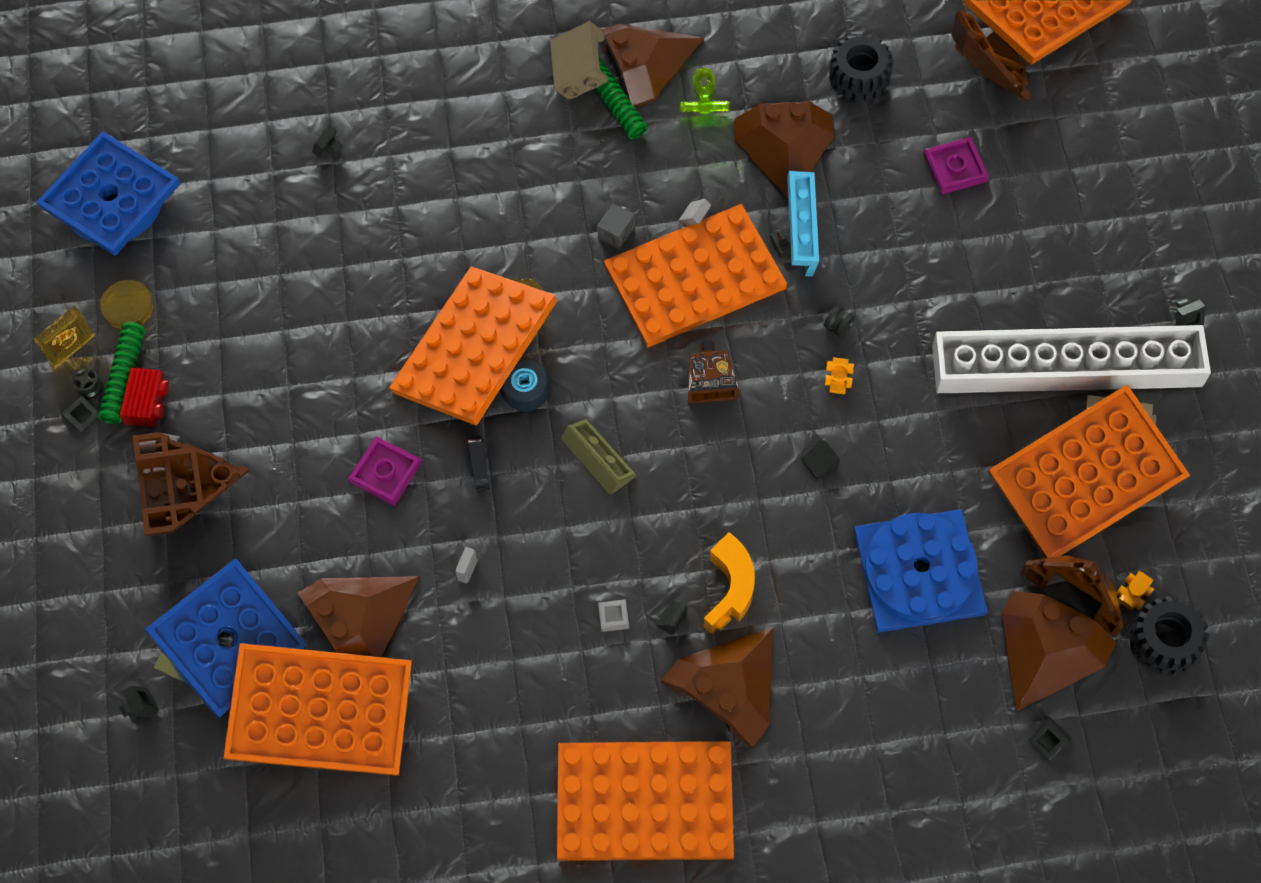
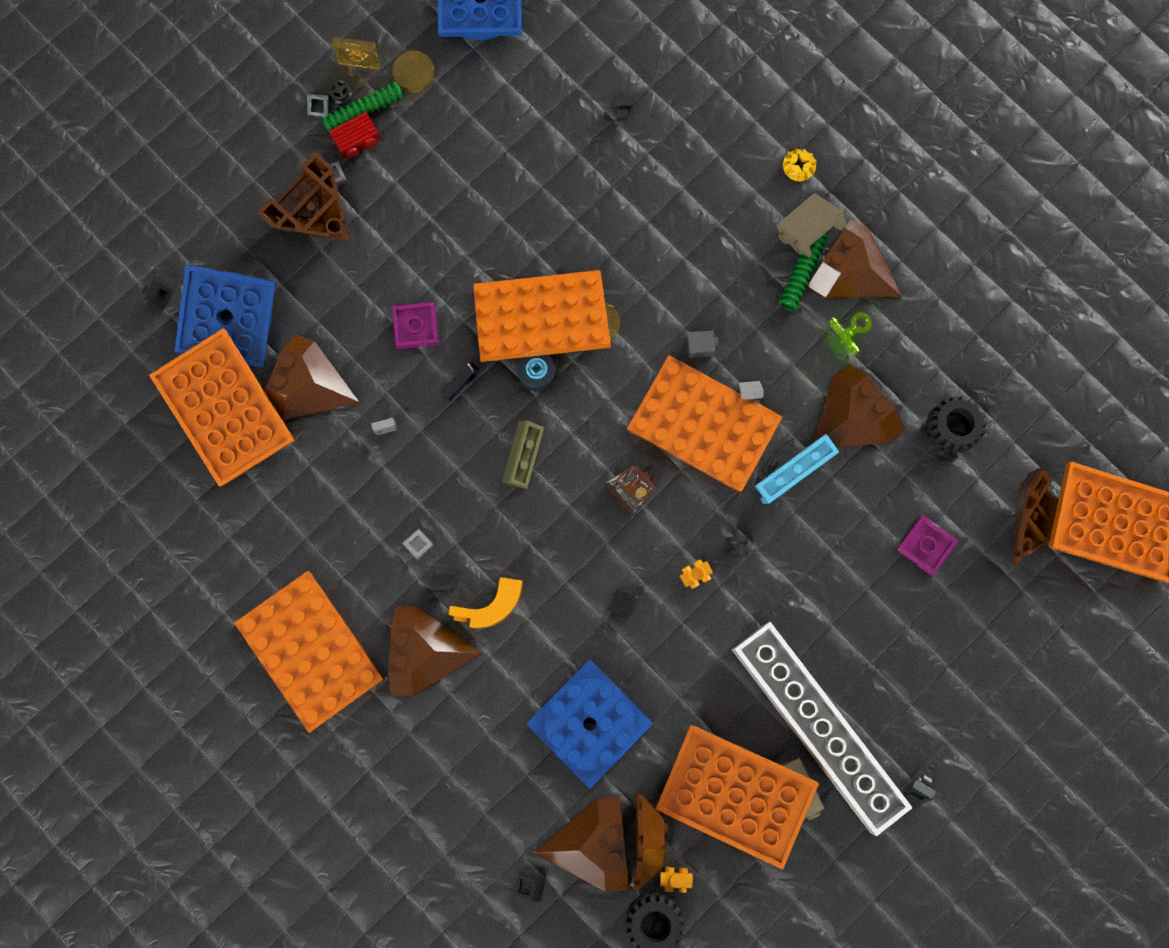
camera: 50 degrees right, 15 degrees up
(515, 46) = (795, 172): none -> yellow gear

